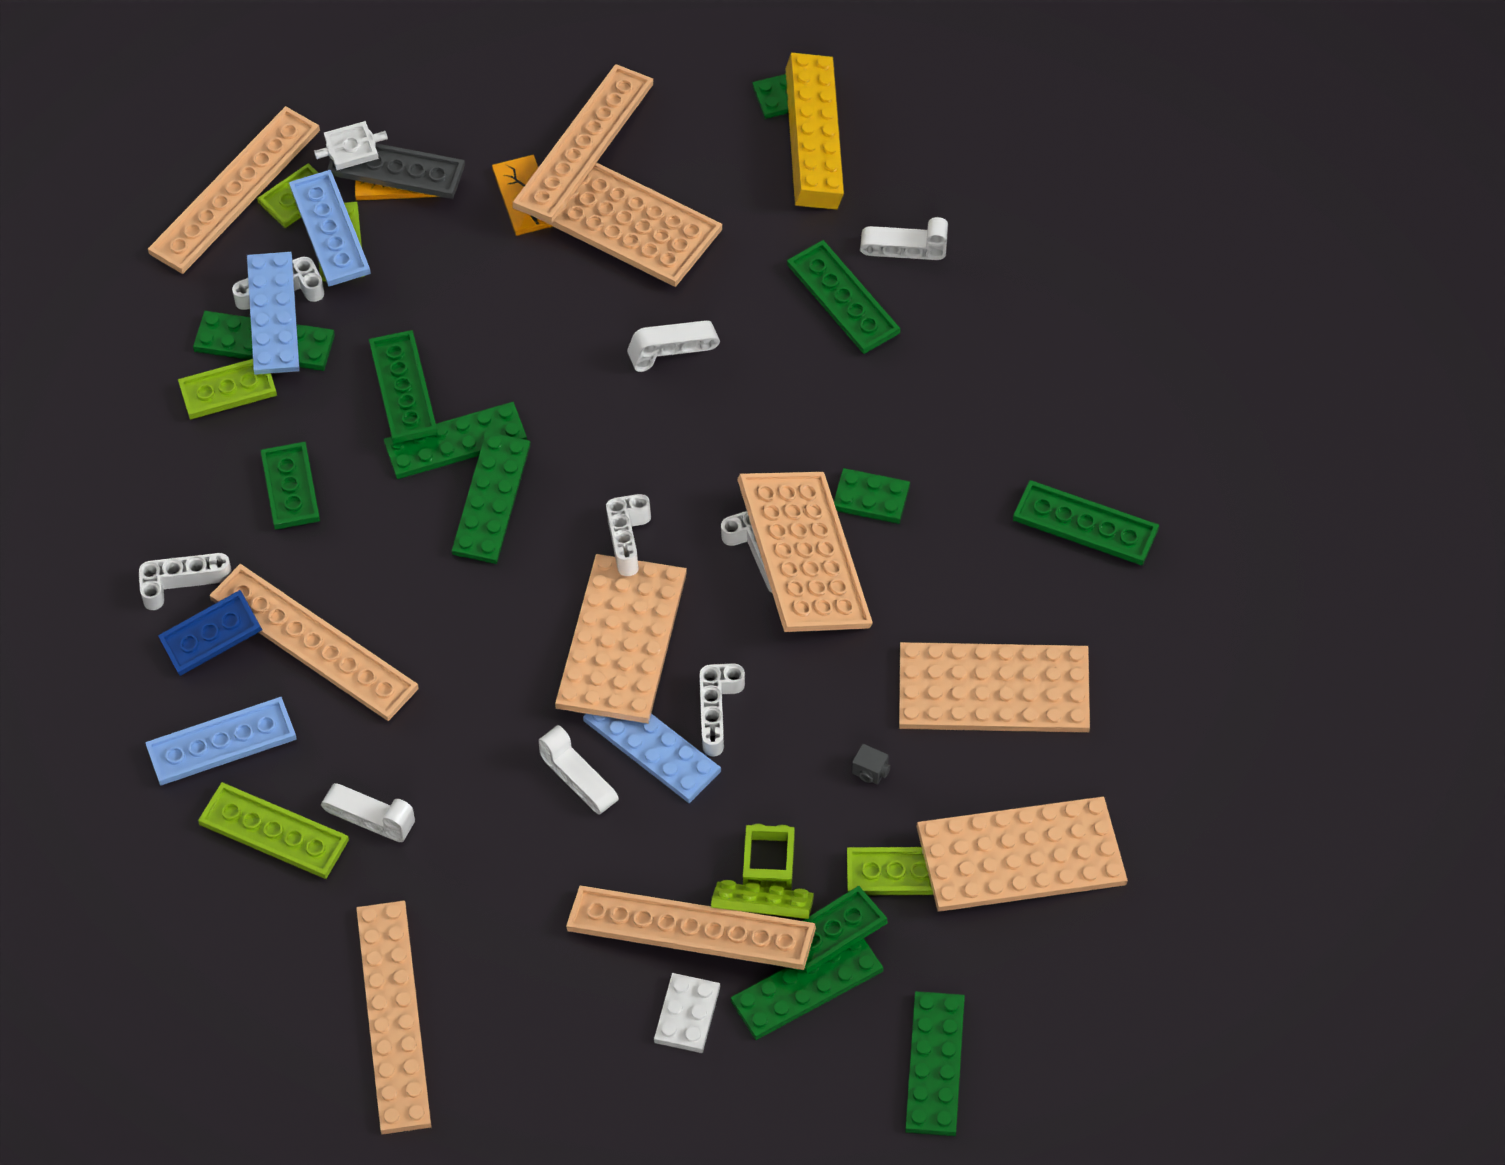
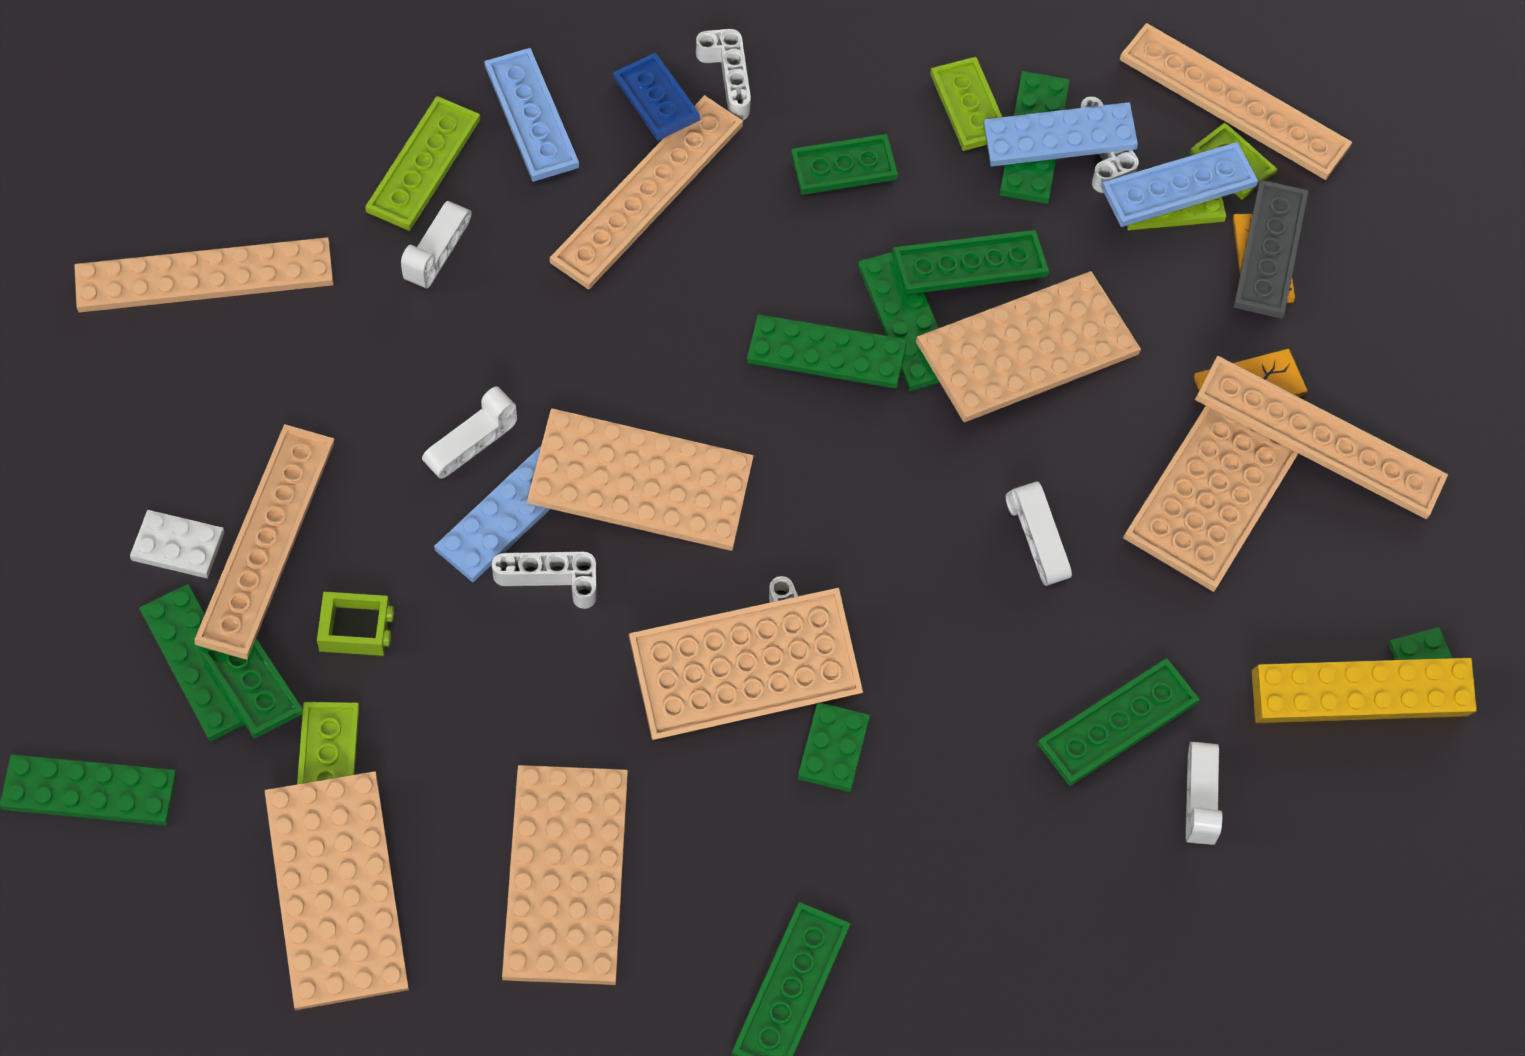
camera: 85 degrees right, 5 degrees up
(351, 145) = (1290, 197): white plate -> none
(488, 348) = (1027, 346): none -> light nougat plate
(622, 515) = (738, 477): white beam -> none
(762, 899) = (295, 613): lime plate -> none
(870, 764) = (464, 731): dark grey brick -> none

